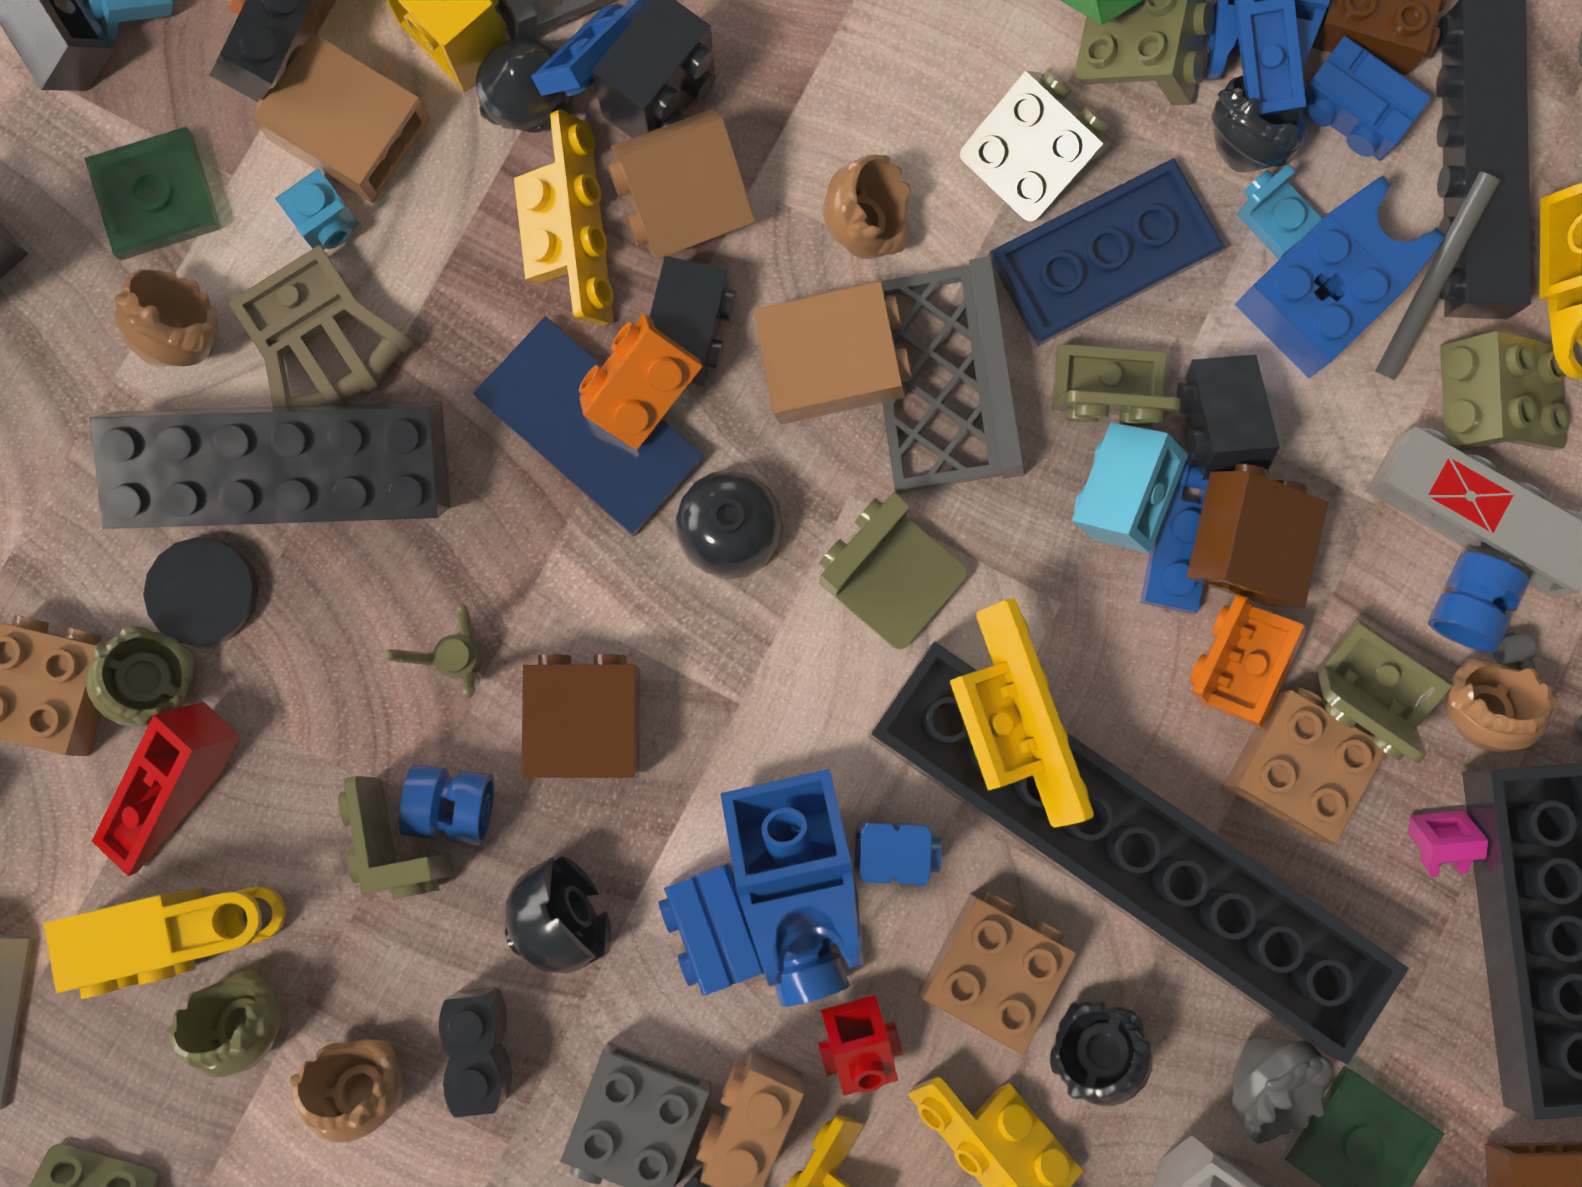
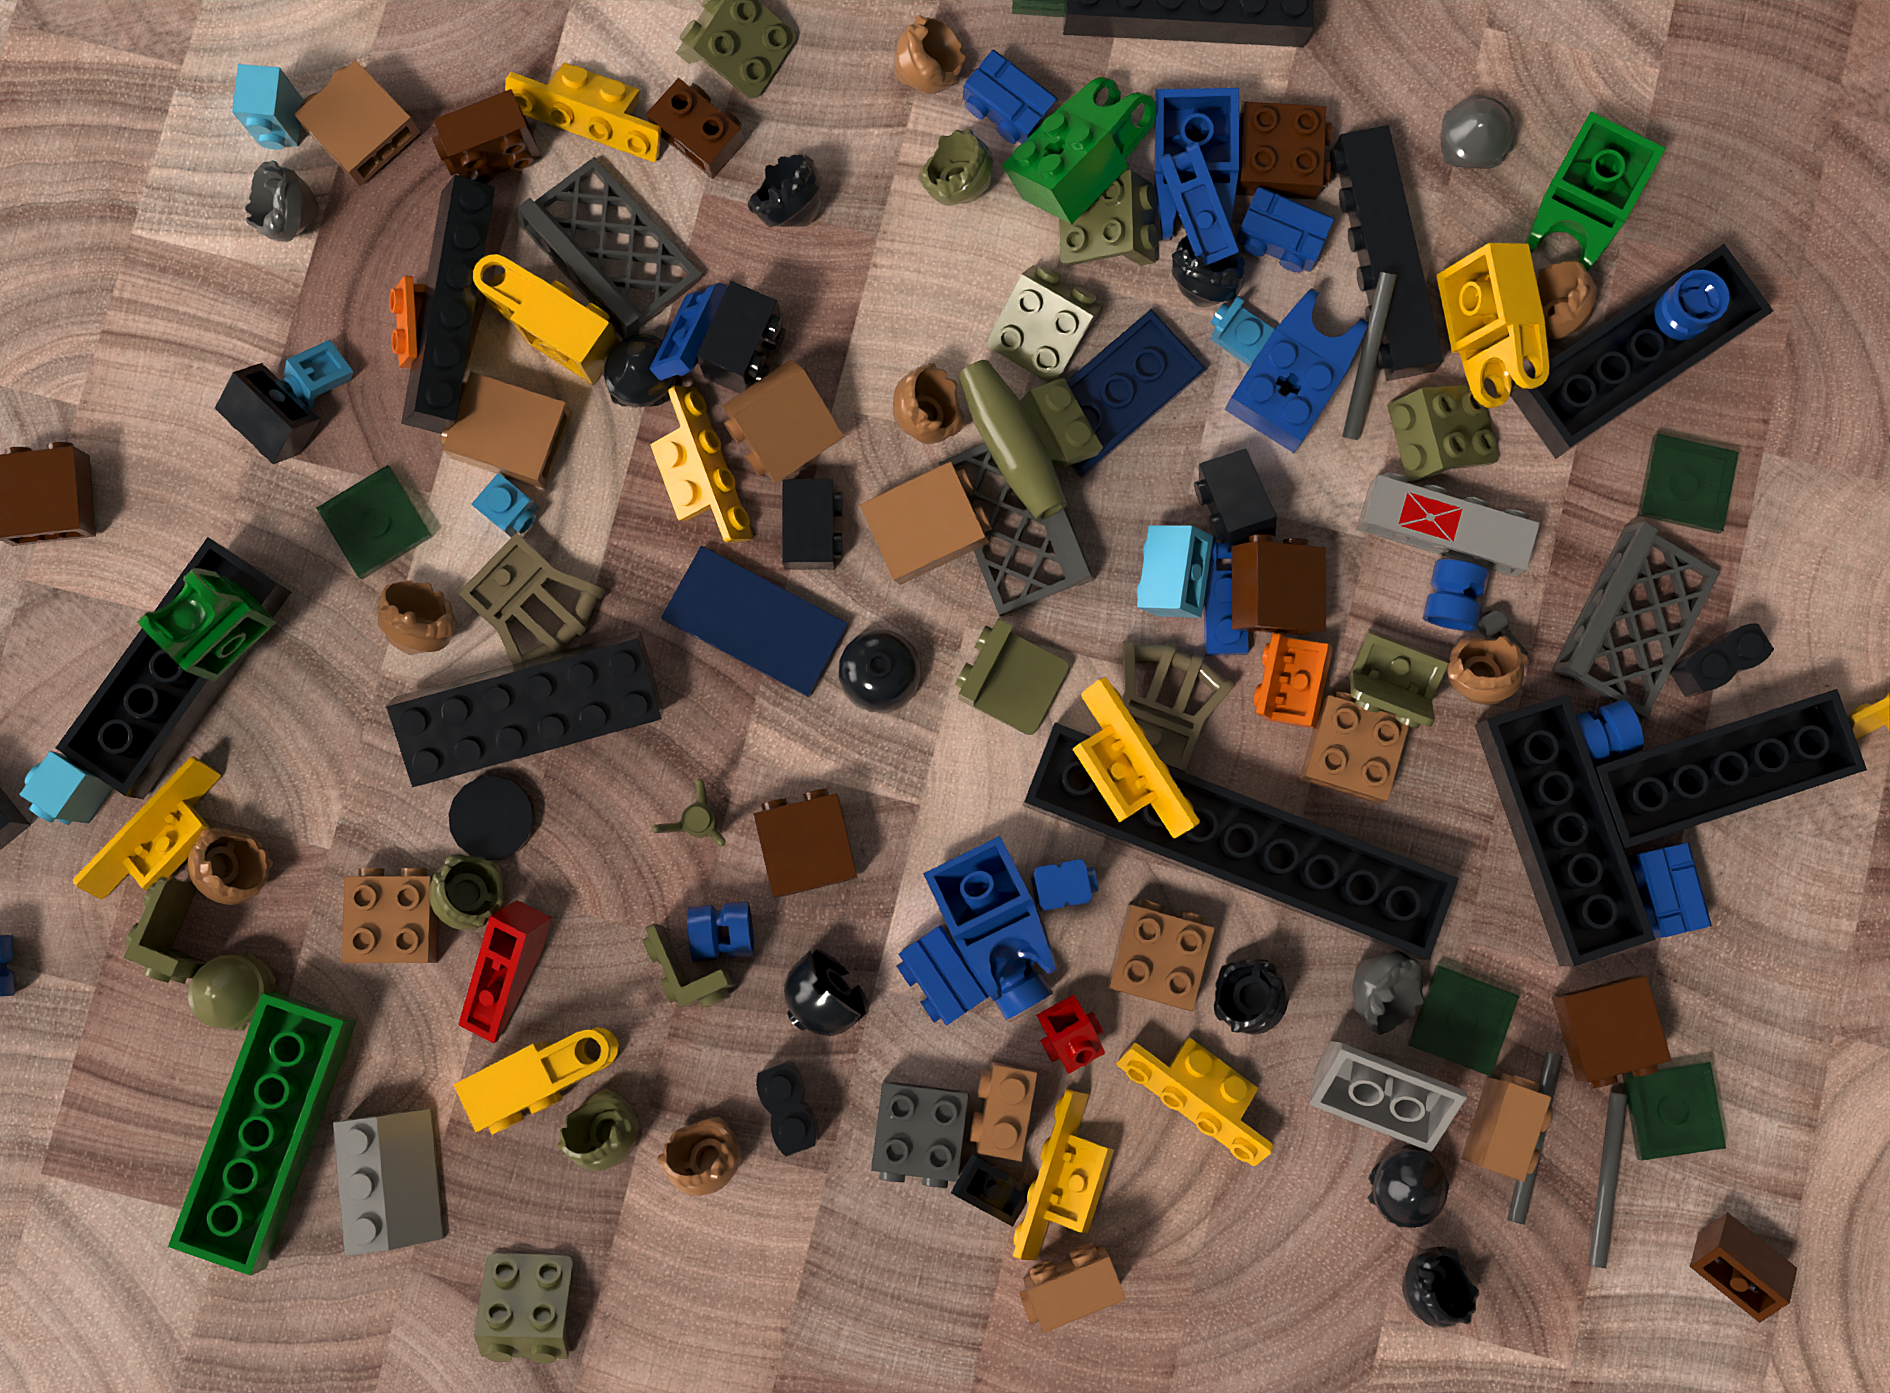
camera: 10 degrees left, 0 degrees up
(637, 382) = (785, 581): orange bracket -> none
(987, 271) = (1029, 434): none -> olive plate
(1075, 683) = (1166, 728): none -> dark tan plate
(1114, 381) = (1143, 493): olive bracket -> none
(1447, 839) = (1473, 777): dark pink tile -> none

